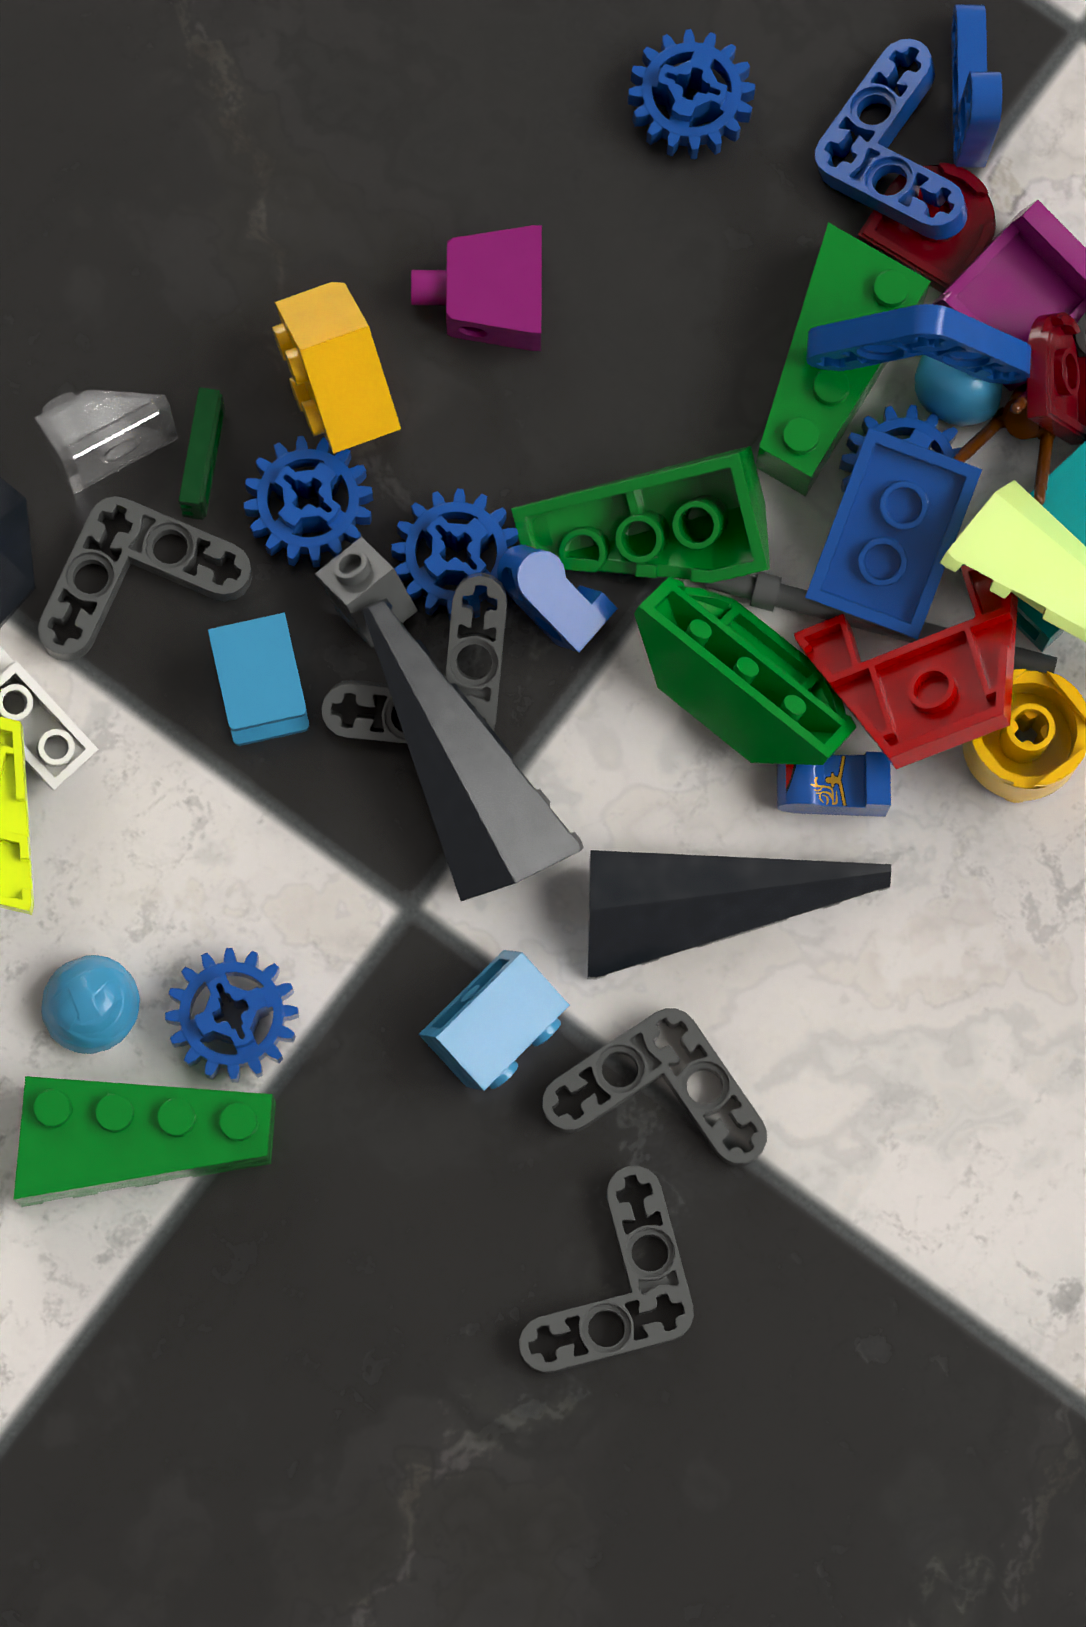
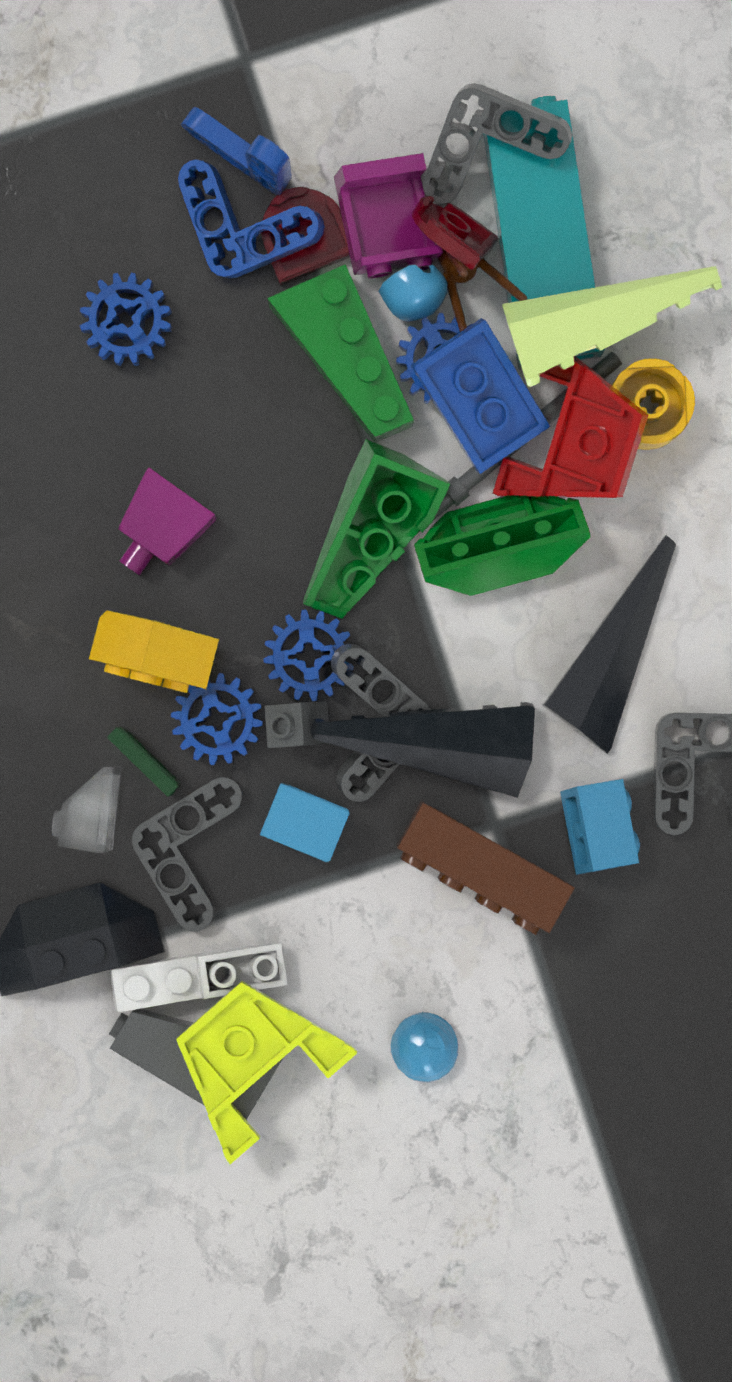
camera: 50 degrees left, 10 degrees up
(124, 1135) = (517, 1082): green wedge -> none
(259, 1004) = (486, 991): blue gear -> none
(352, 913) = (484, 867): none -> reddish brown brick
(543, 592) = (369, 622): leg -> none
(839, 787) = (605, 523): blue leg -> none
(916, 332) = (385, 302): blue beam -> none

